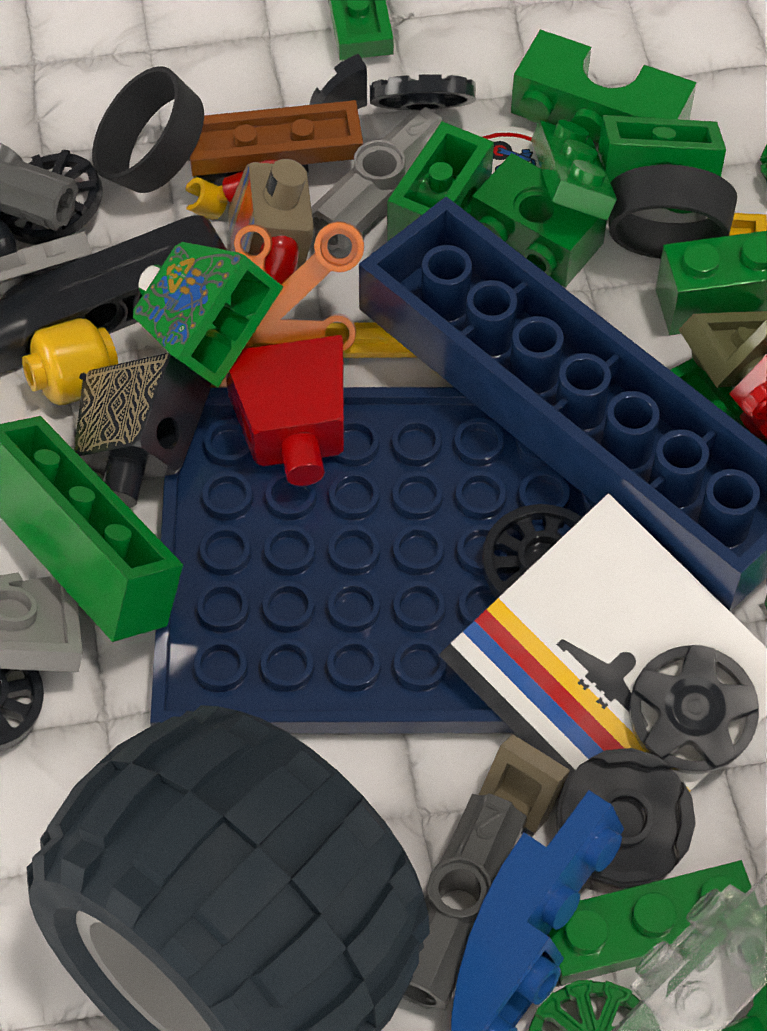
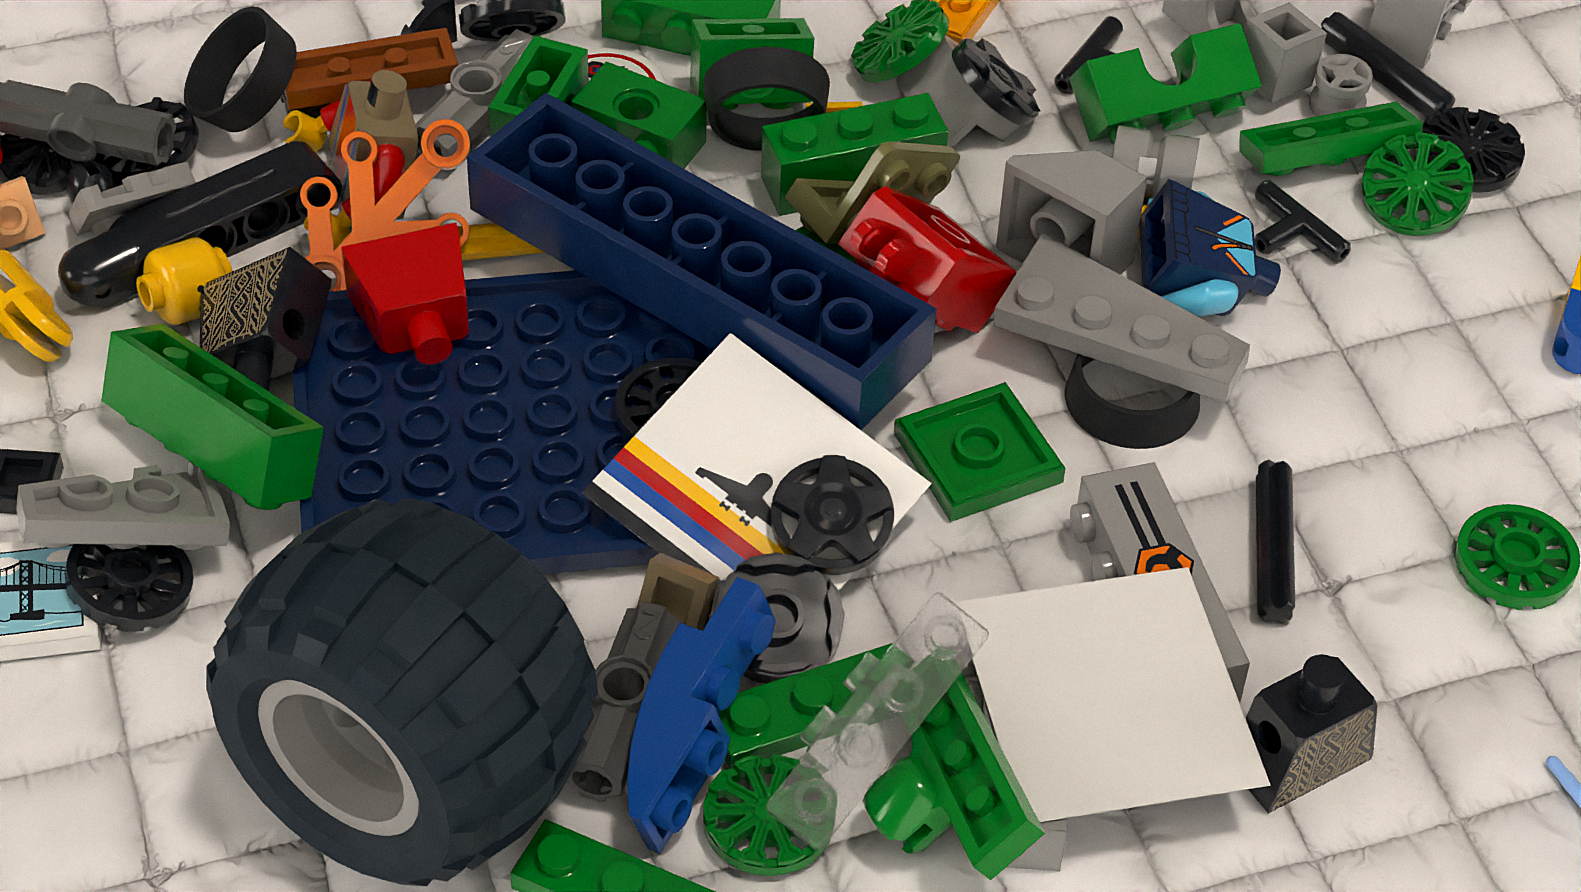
camera: 10 degrees left, 10 degrees down
(204, 306) = (320, 202): green torso -> none
(573, 168) = (667, 68): green plate -> none

